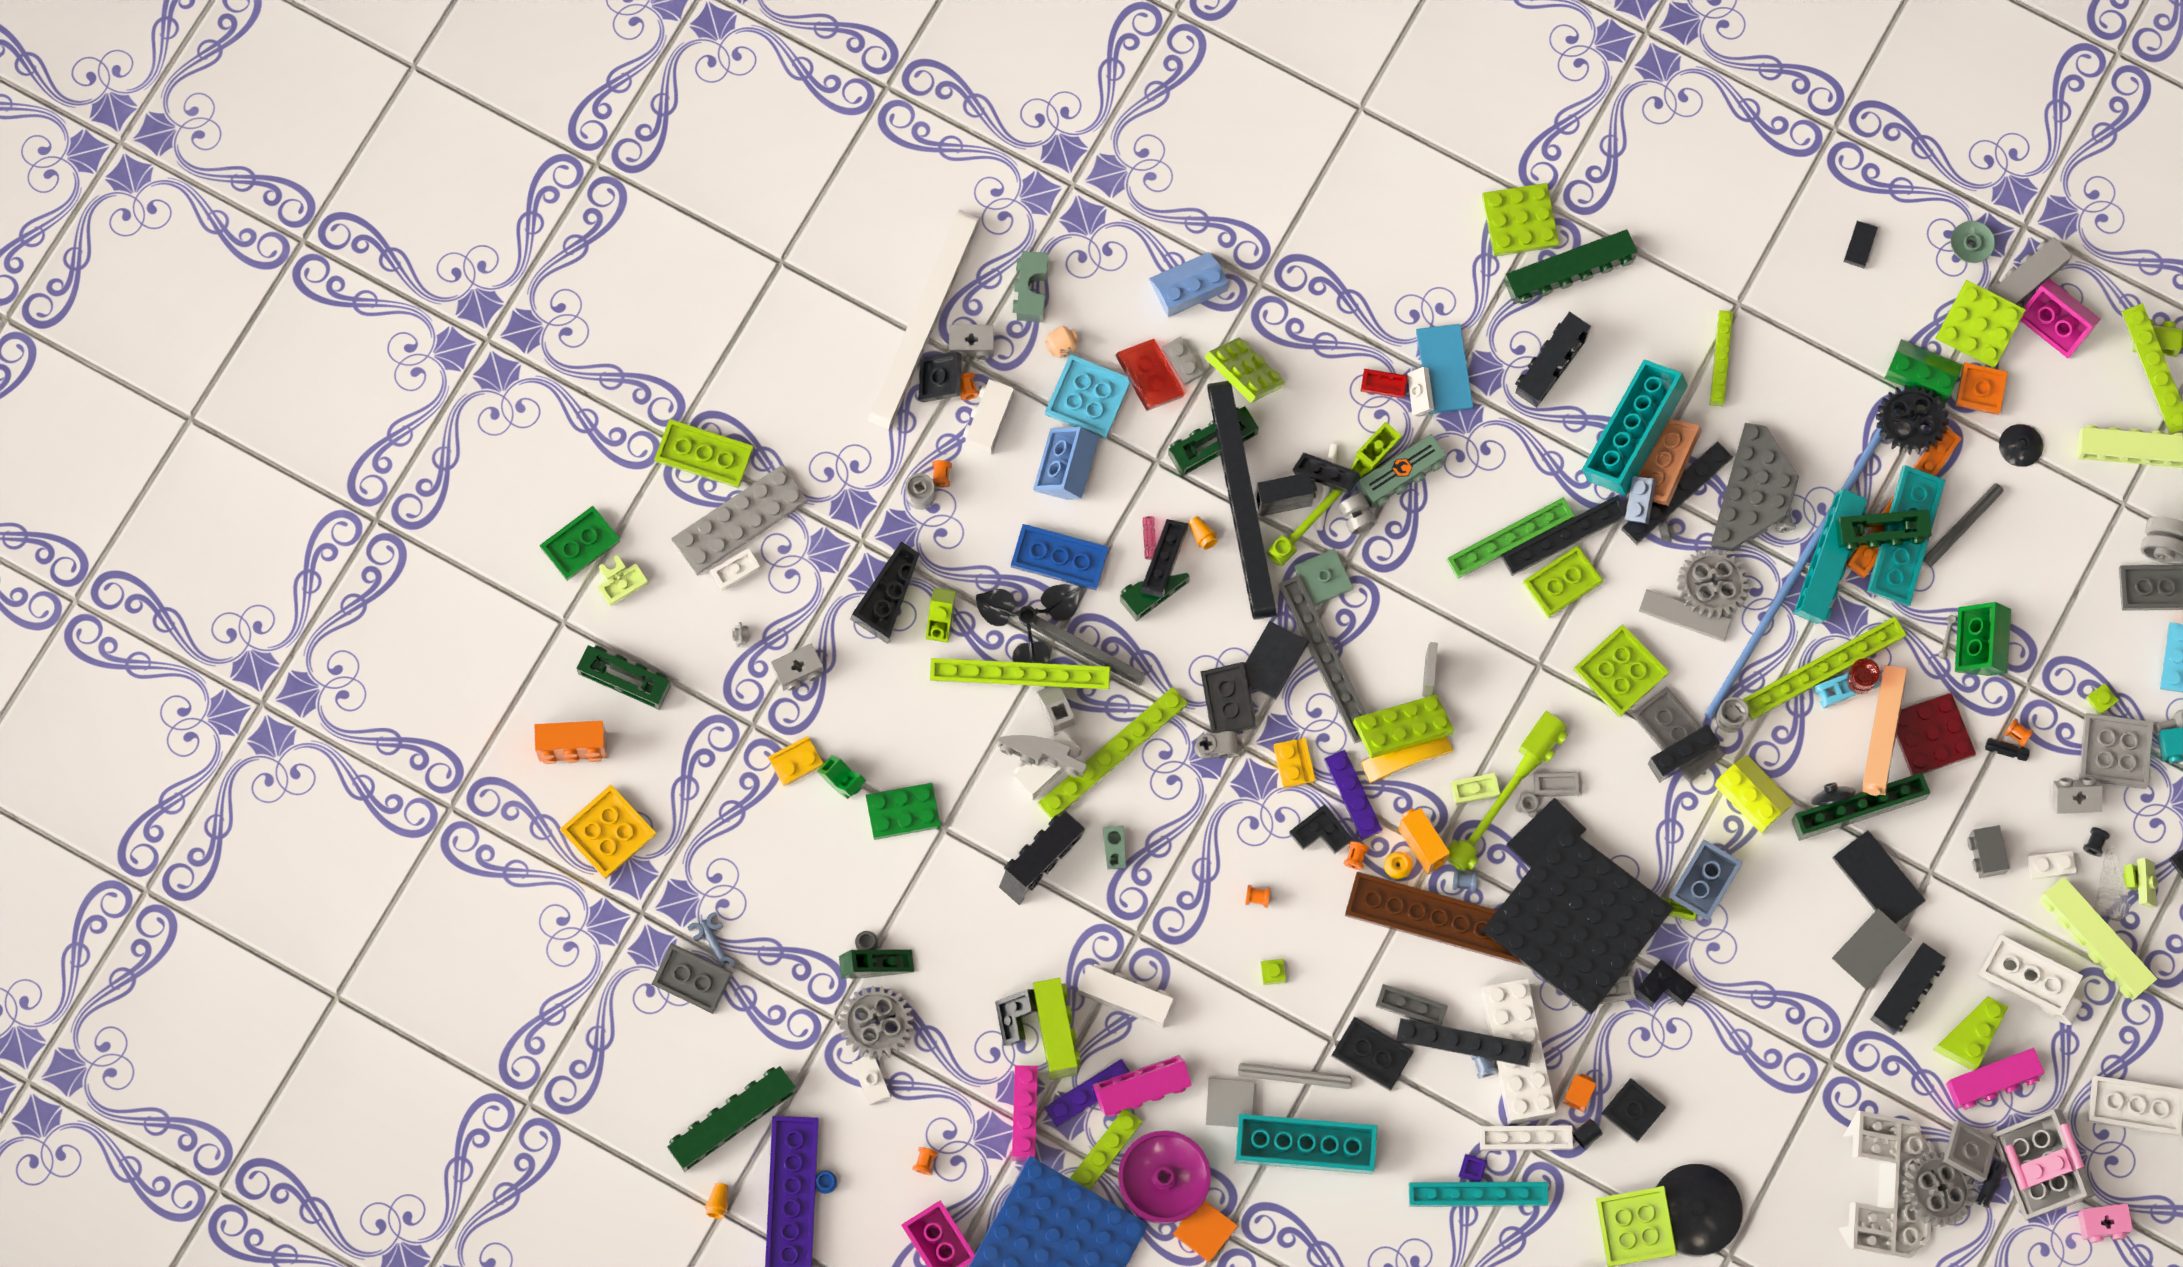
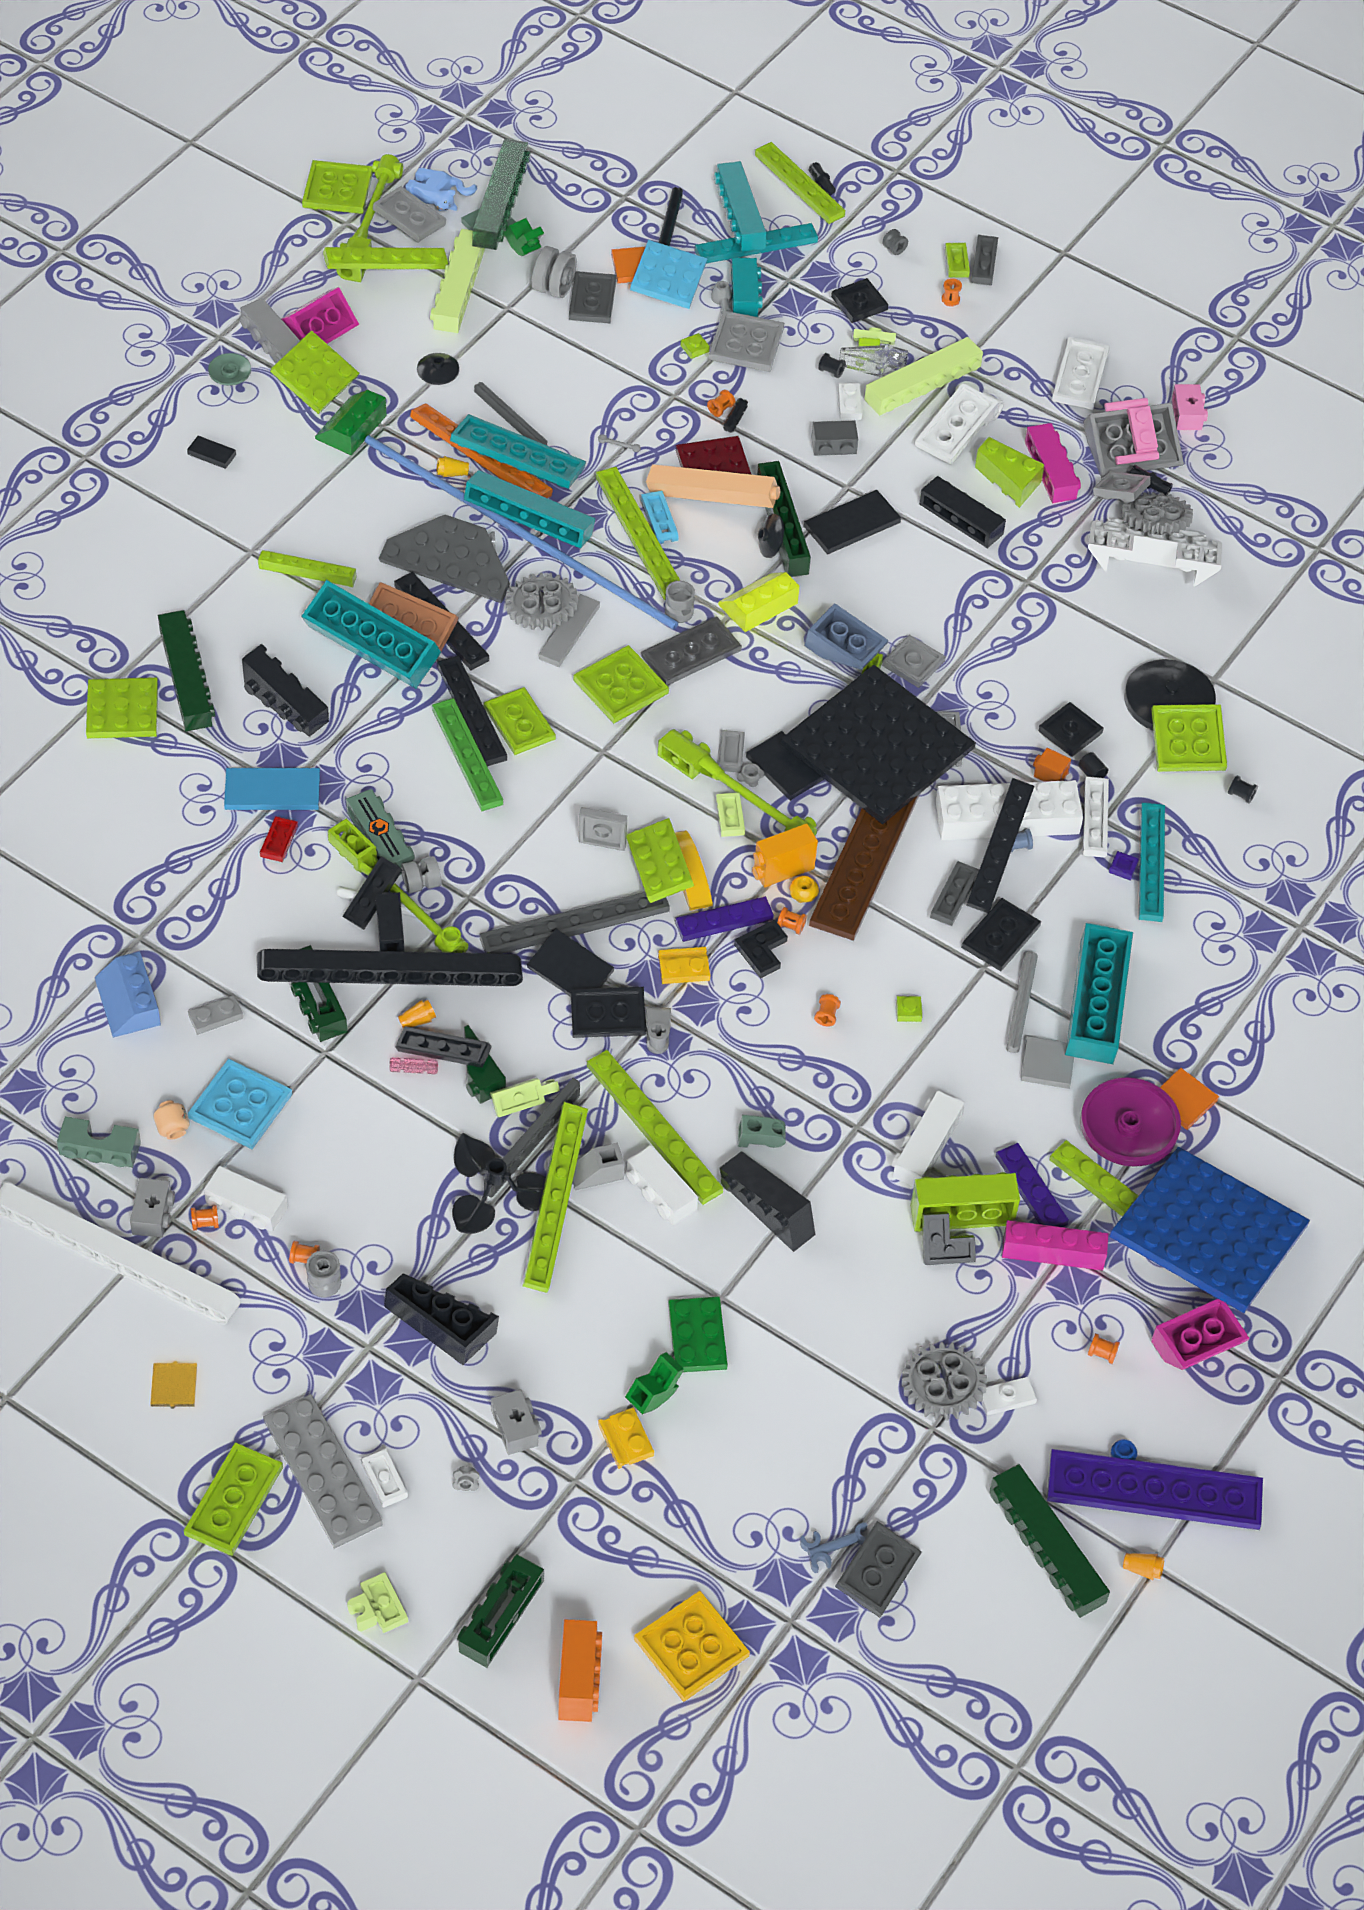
camera: 85 degrees left, 20 degrees down
(579, 543) = (323, 1647): green plate -> none
(807, 390) = (173, 1385): none -> clear yellow piece
(866, 941) = (848, 1384): dark grey plate -> none
(875, 963) = (875, 1377): dark green slope -> none
(940, 377) = (190, 1239): black plate -> none
(940, 614) = (472, 1269): lime slope -> none
(1034, 749) = (654, 1172): light grey slope -> none
(1059, 557) = (422, 1150): blue plate -> none
(1066, 462) = (314, 1132): medium blue slope -> none
(1127, 635) = (522, 1096): none -> yellowish green plate
(1142, 1085) = (1030, 1130): dark pink brick -> none
(1150, 374) = (227, 1042): clear red tile -> none
(1245, 369) = (244, 946): lime plate -> none
(1324, 577) = (481, 915): sand green plate -> none
(1420, 391) = (295, 807): white plate -> none
(1464, 881) = (826, 836): sand blue bush -> none
(1640, 500) = (450, 638): plate -> none
(1665, 980) = (945, 691): black plate -> none
(1666, 531) = (481, 630): dark grey plate -> none
(1683, 753) = (716, 639): black brick -> none
(1701, 952) = (913, 661): none -> light grey tile
(1847, 533) = (516, 479): dark green brick -> none
(1863, 676) = (657, 494): clear red wheel -> none
(1871, 948) = (921, 533): dark grey tile -> none
(1878, 475) = (451, 467): none -> yellow cone
(1916, 437) = (385, 430): black gear -> none
(1981, 388) = (379, 380): orange plate -> none
(1983, 639) = (627, 415): green slope -> none
(2087, 801) = (788, 368): light grey brick -> none

